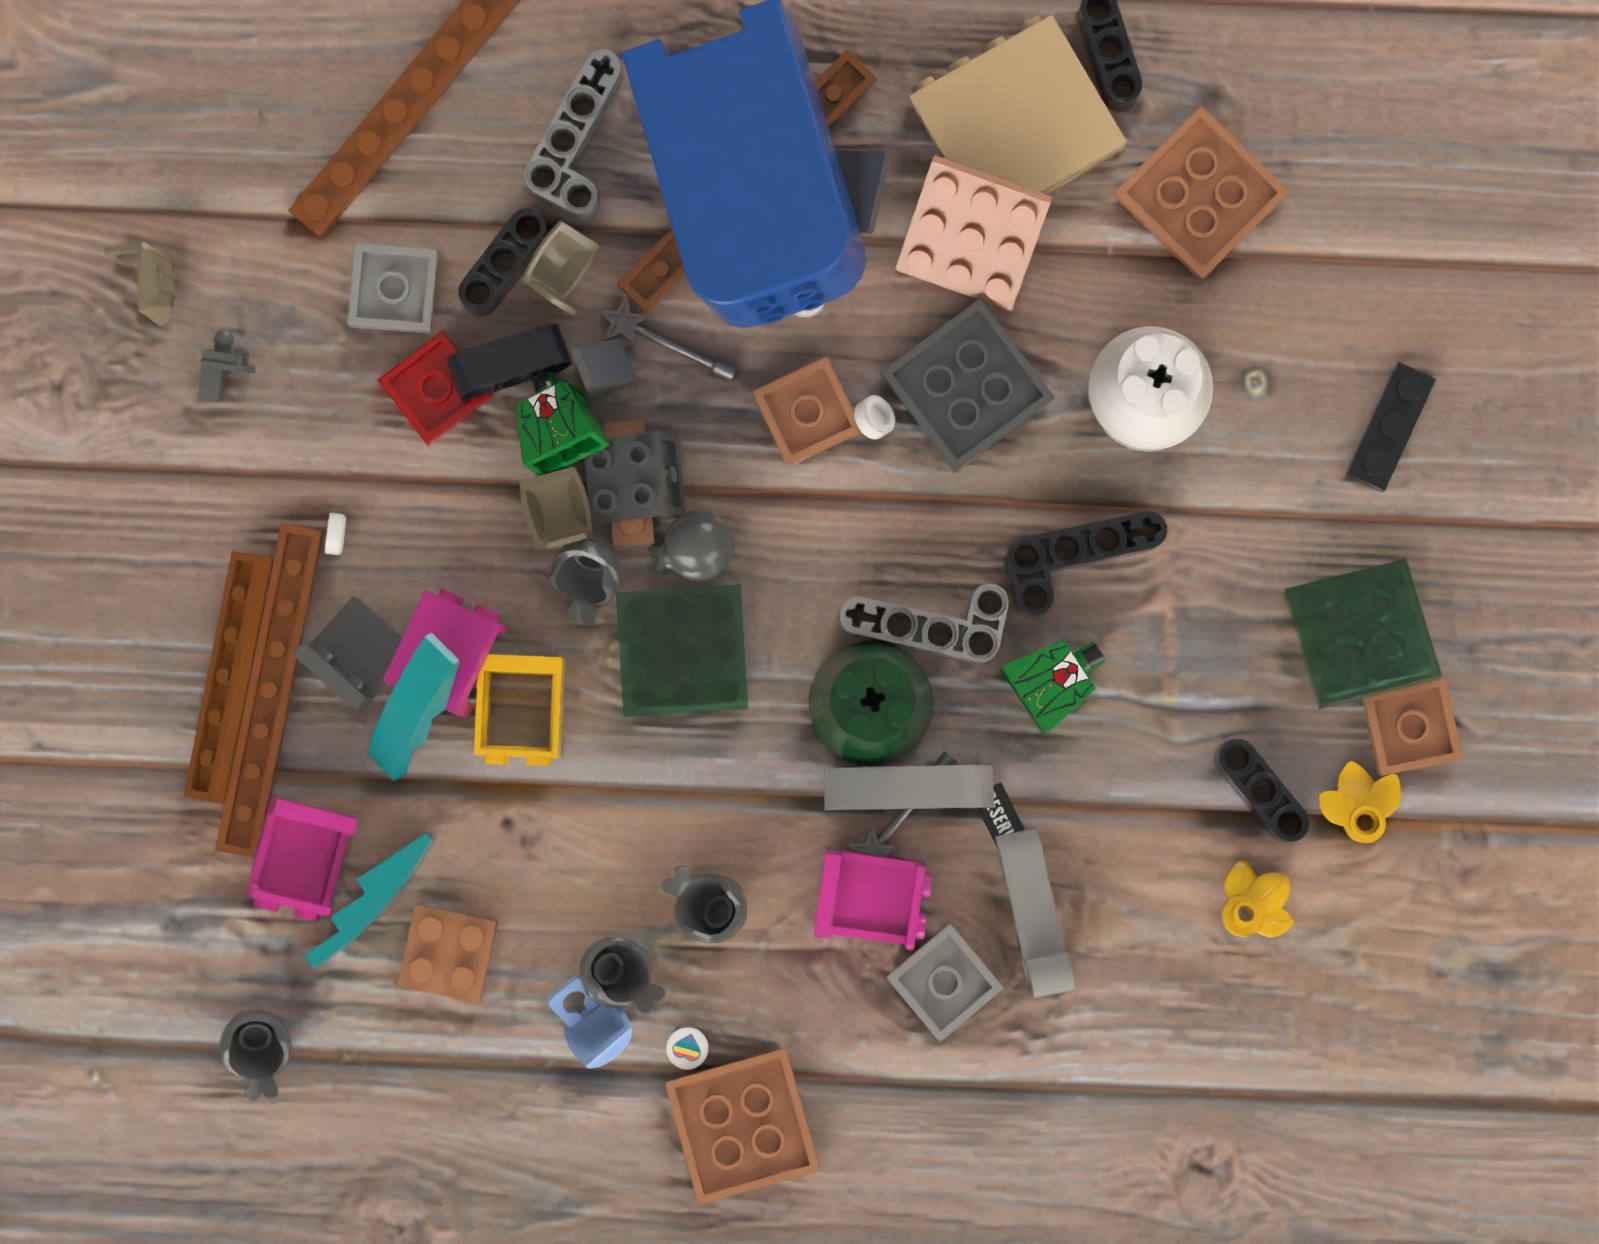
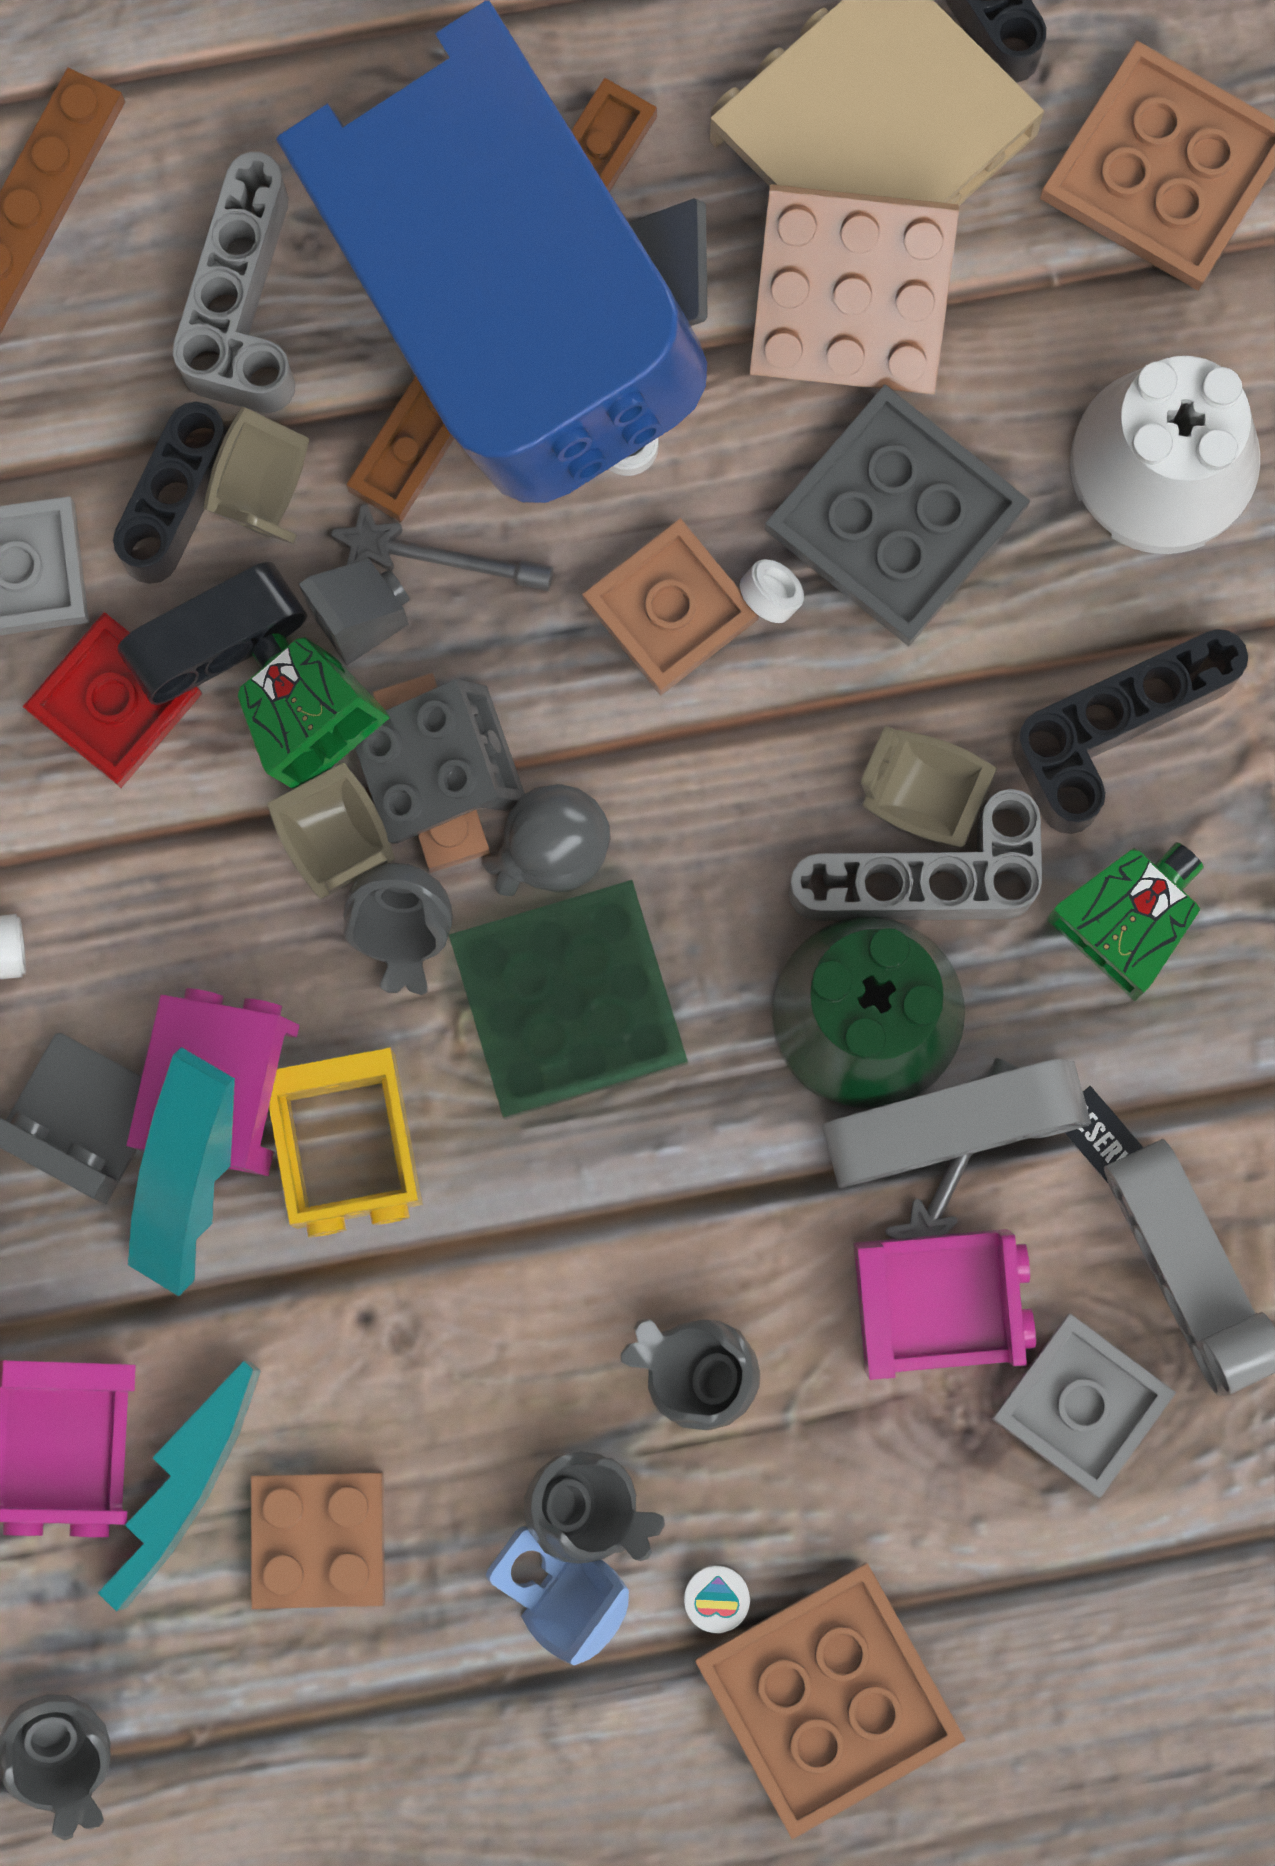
camera: 10 degrees left, 5 degrees down
(942, 567) = (926, 786): none -> dark tan piece

